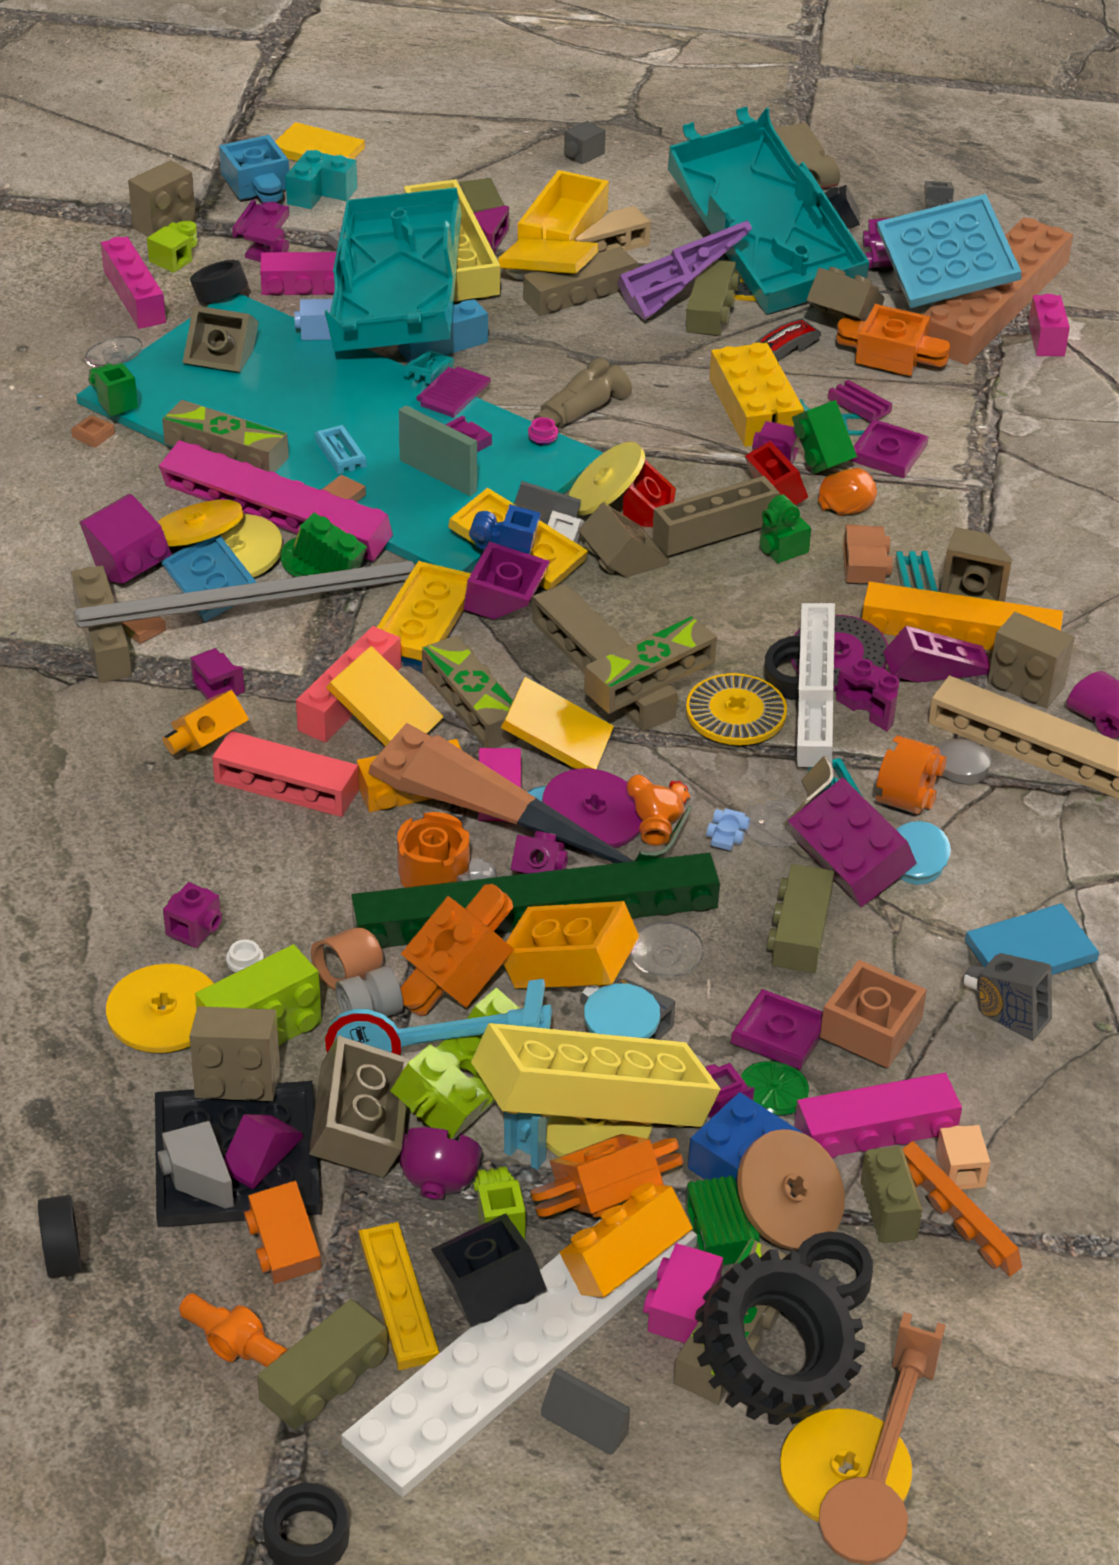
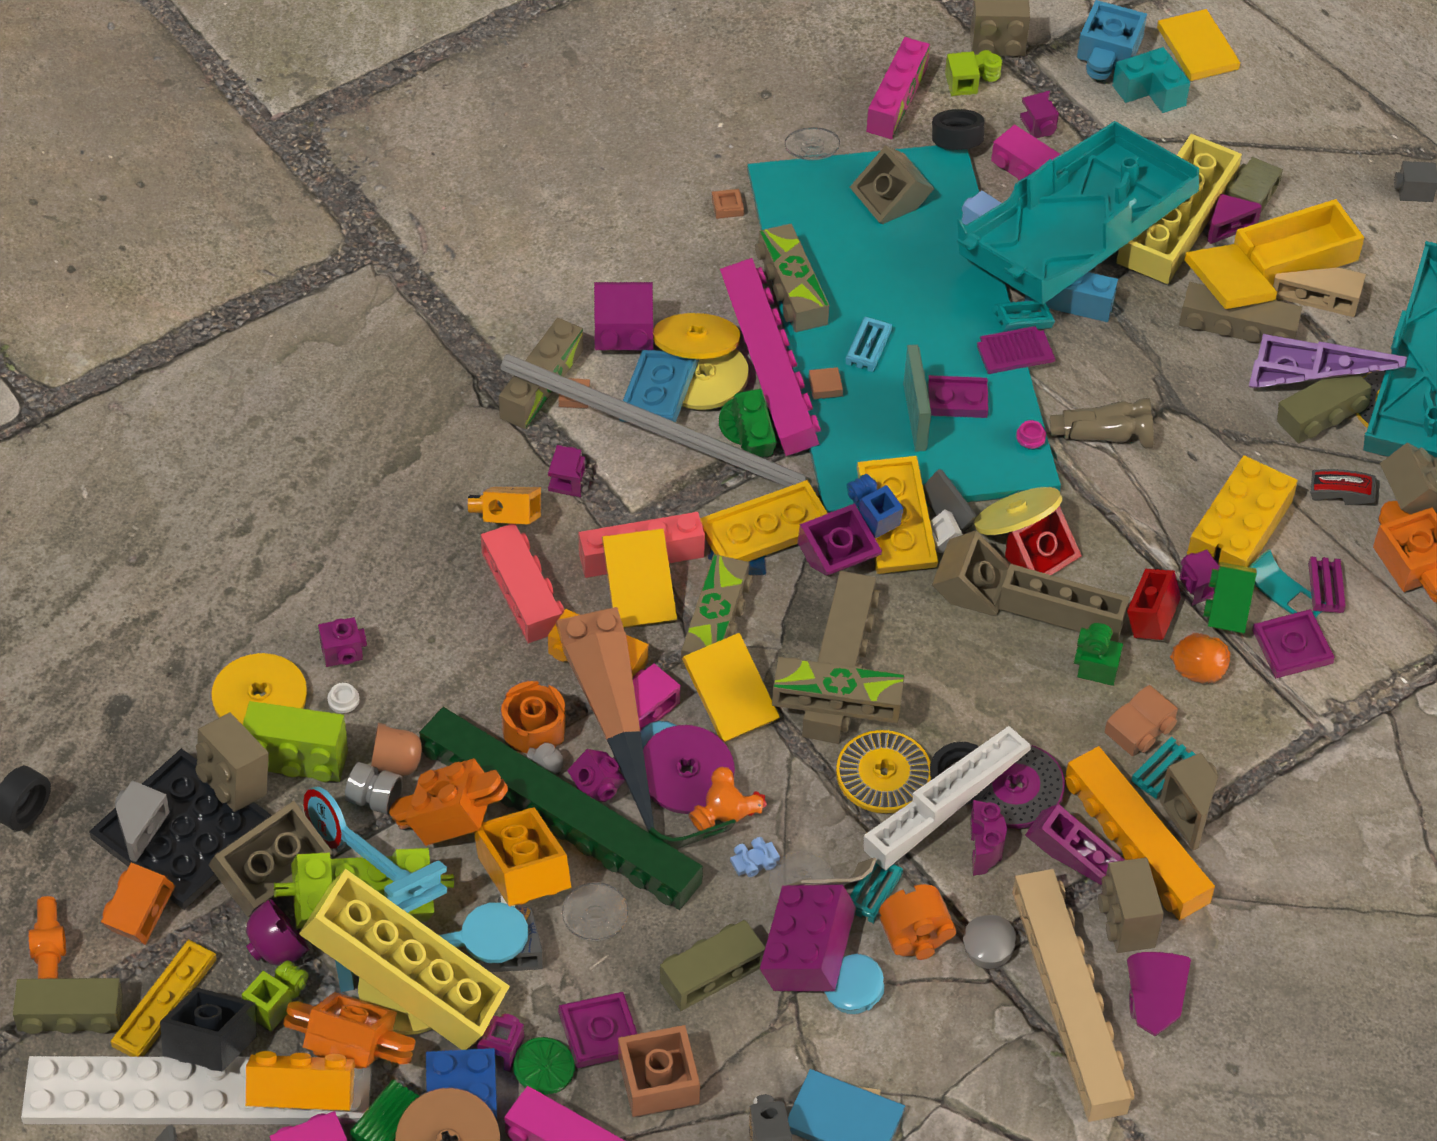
camera: 45 degrees right, 10 degrees up
(114, 388) = (763, 178): green brick -> none
(259, 1147) = (188, 835): magenta slope -> none
(268, 213) = (1070, 89): magenta plate -> none

